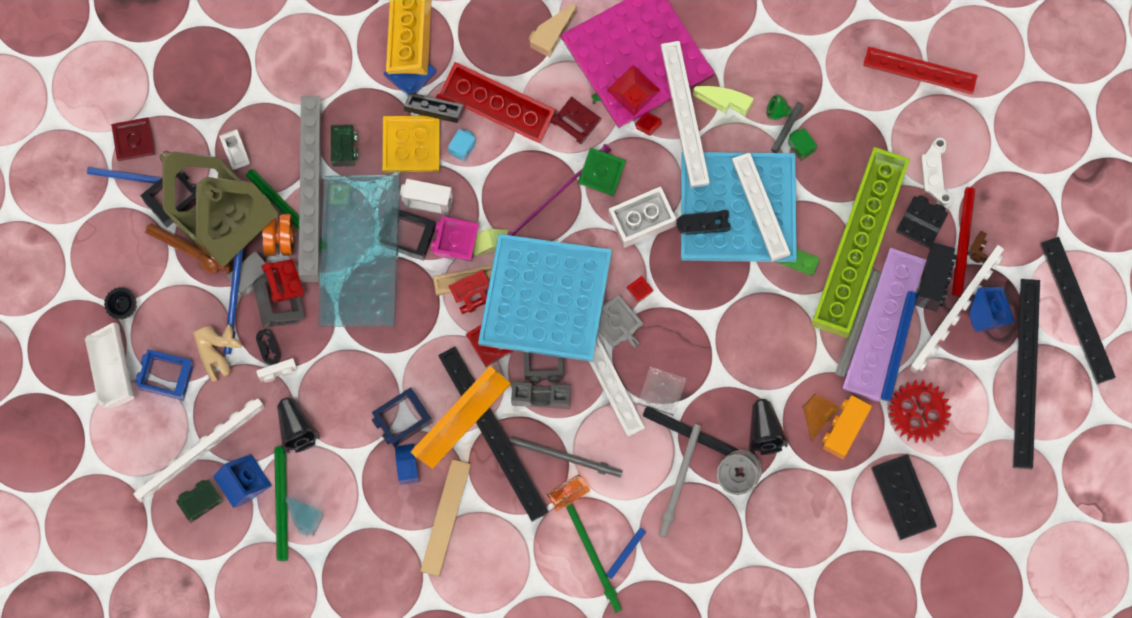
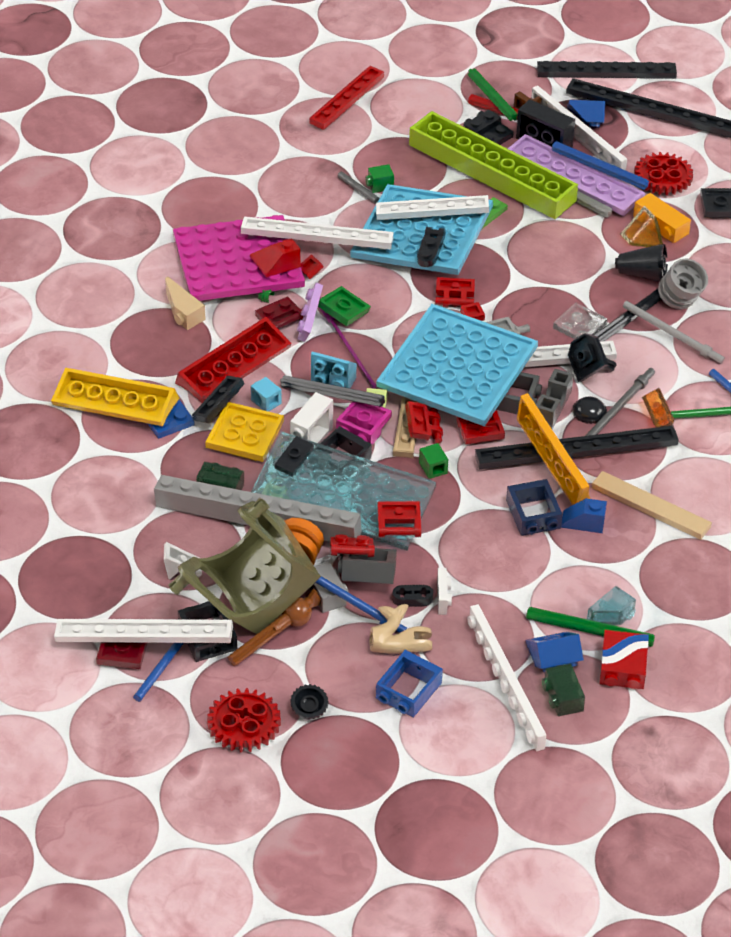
camera: 75 degrees left, 30 degrees down
(69, 260) = (244, 720): none -> red gear
(109, 366) = (379, 723): white container -> none
(141, 149) = (143, 630): none -> white plate
(248, 540) = (624, 659): none -> panel
(295, 427) = (510, 587): black cone -> none
(342, 307) = (399, 513): none -> red plate
(372, 196) = (294, 456): none -> black plate
(430, 314) = (433, 461): none -> green brick
(478, 200) = (333, 391): none -> axle
(509, 195) = (332, 370): none -> medium azure slope
(551, 432) = (589, 409): none -> black hat
(577, 144) = (309, 311): none -> lavender plate
(602, 414) = (588, 357): none -> black piece
(642, 217) = (403, 289): white brick -> none
(669, 261) = (454, 287): none -> red plate
(724, 99) = (316, 209): yellowish green slope -> none
(777, 108) = (336, 184): green brick -> none
(933, 173) = (450, 111): white plate -> none
(976, 208) = (492, 94): none -> green axle

